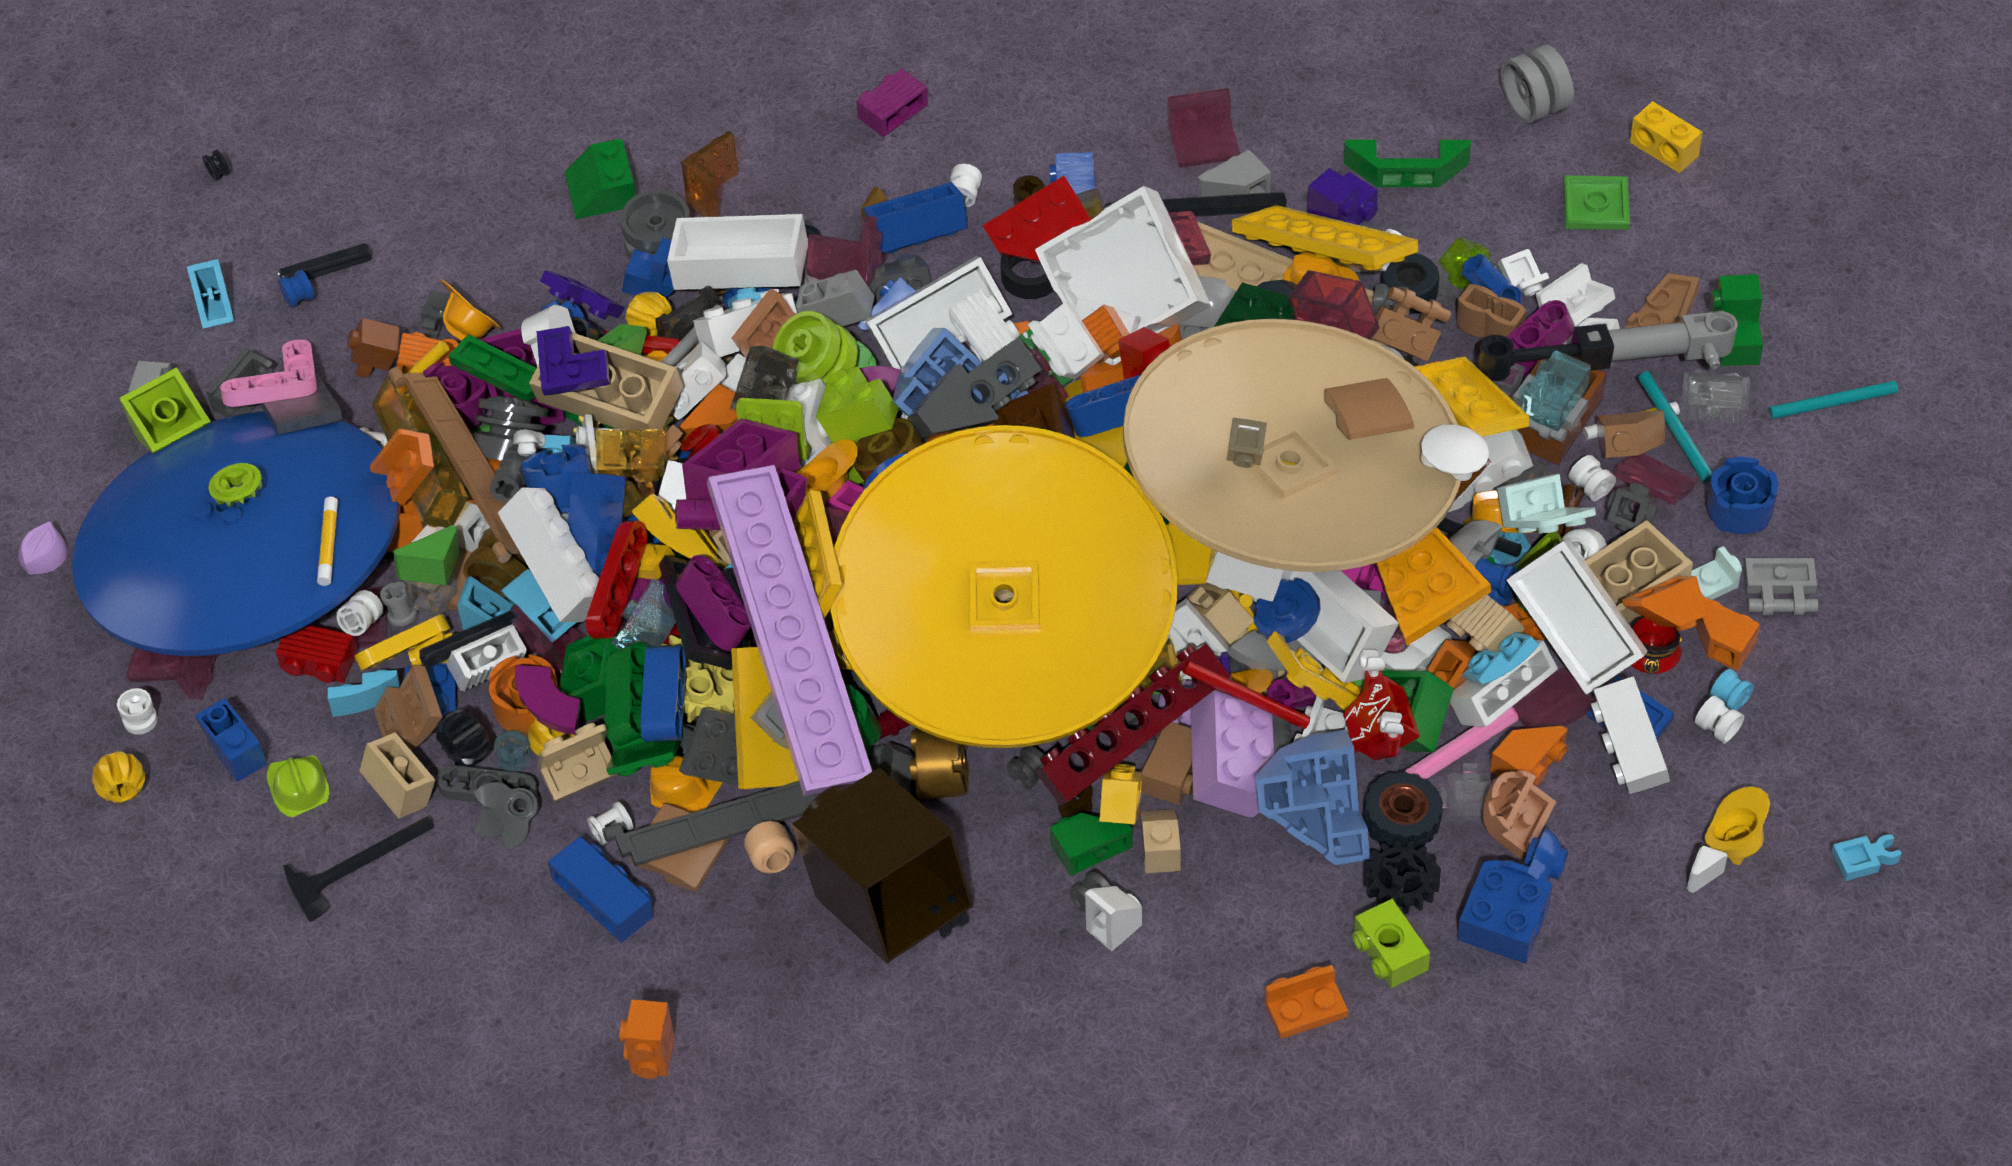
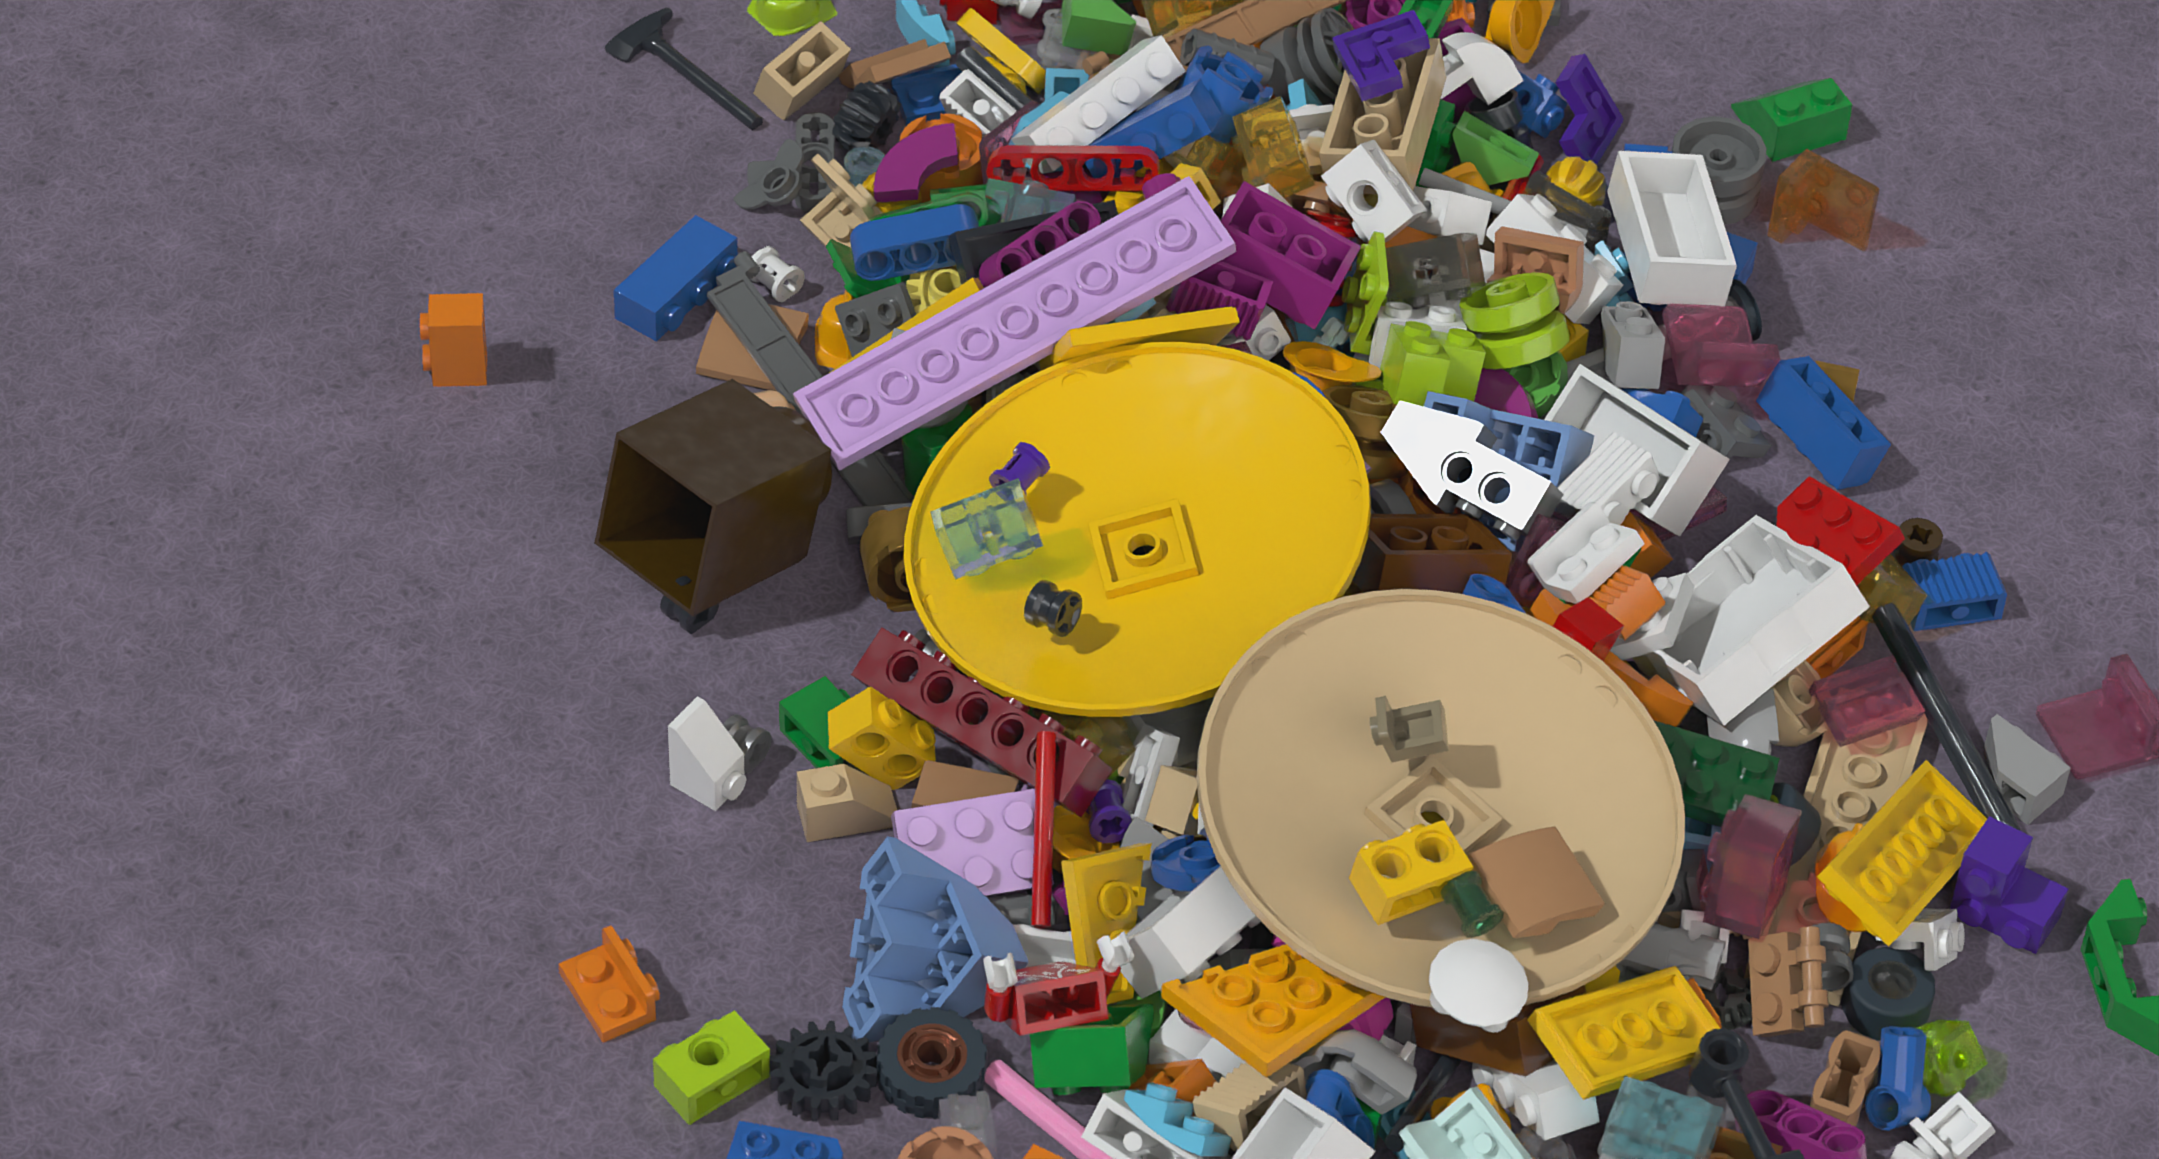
camera: 75 degrees right, 5 degrees down
(528, 441) = (1280, 58): white arm -> none
(680, 397) = (1396, 201): none -> white brick
(892, 102) = (2034, 378): magenta brick -> none
(935, 662) = (1025, 464): none -> dark purple bush
(967, 180) = (1903, 472): white wheel -> none
(987, 675) = (999, 510): none -> clear light blue brick
(1069, 647) = (1053, 608): none -> black wheel
(1363, 467) = (1413, 880): none -> yellow brick
(1388, 442) = (1472, 904): none -> clear green bush

